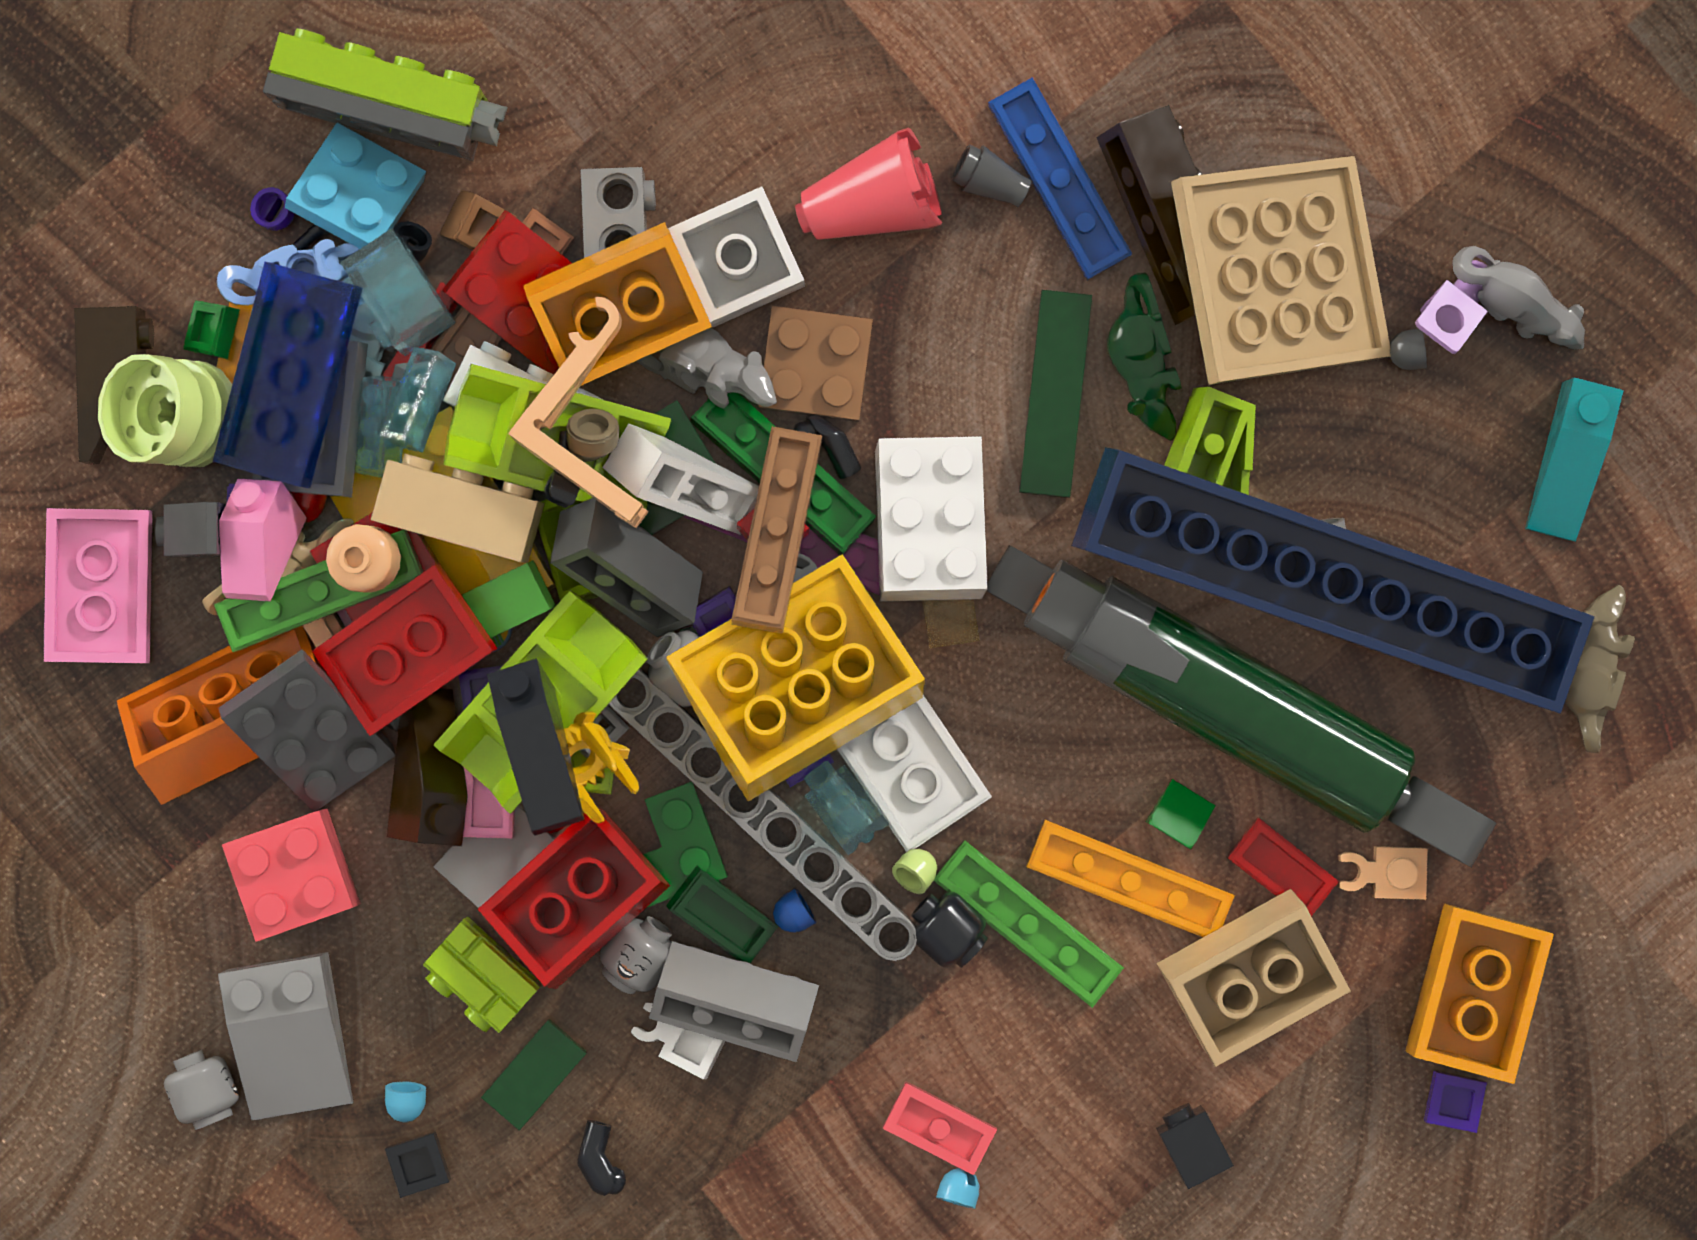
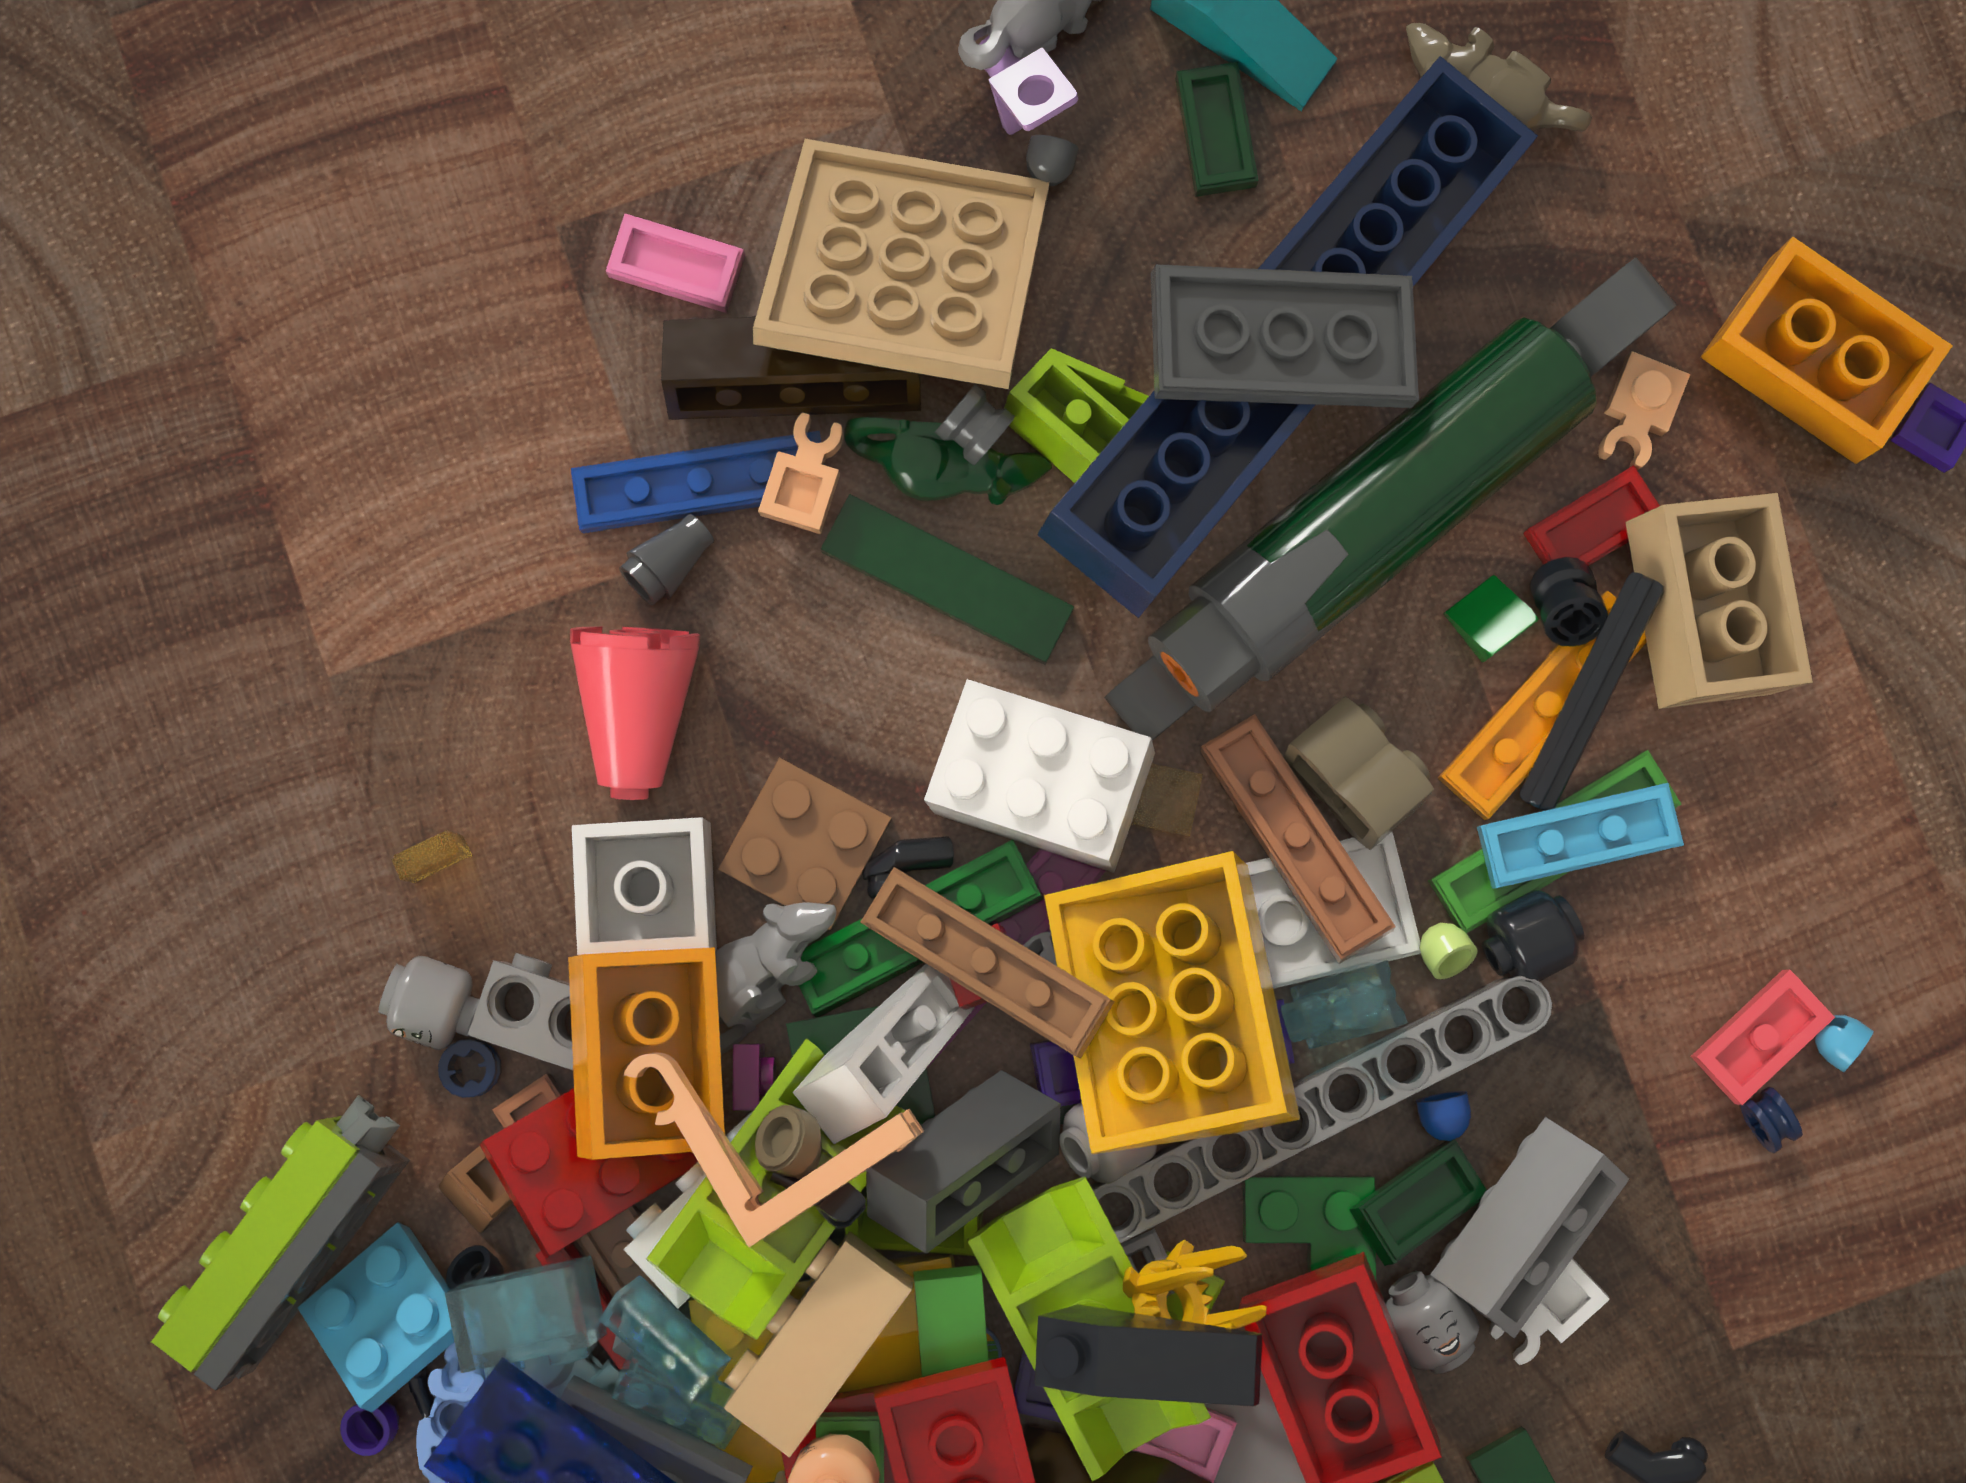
camera: 70 degrees left, 5 degrees down
(544, 187) = (473, 1087): none -> dark blue bush
(593, 131) = (428, 1002): none -> light grey head
(629, 389) = (751, 1075): none -> magenta plate
(701, 89) = (431, 856): none -> clear yellow tile
(880, 1155) = (1771, 1120): none -> dark blue bush
(957, 727) = (1297, 839): none -> nougat tile
(1024, 756) = (1359, 771): none -> dark tan brick
(1038, 938) = (1580, 835): none -> medium azure tile
(1081, 257) = (801, 485): none -> light nougat plate
(1149, 906) = (1591, 691): none -> black axle
(1174, 370) = (974, 424): none -> dark grey wheel
(1193, 1144) = (1887, 745): black brick -> none
(1212, 866) = (1568, 601): none -> black wheel
(1221, 94) = (675, 263): none -> bright pink tile
(1320, 574) = (1283, 336): none -> dark grey tile
(1484, 468) = (1216, 129): none -> dark green tile

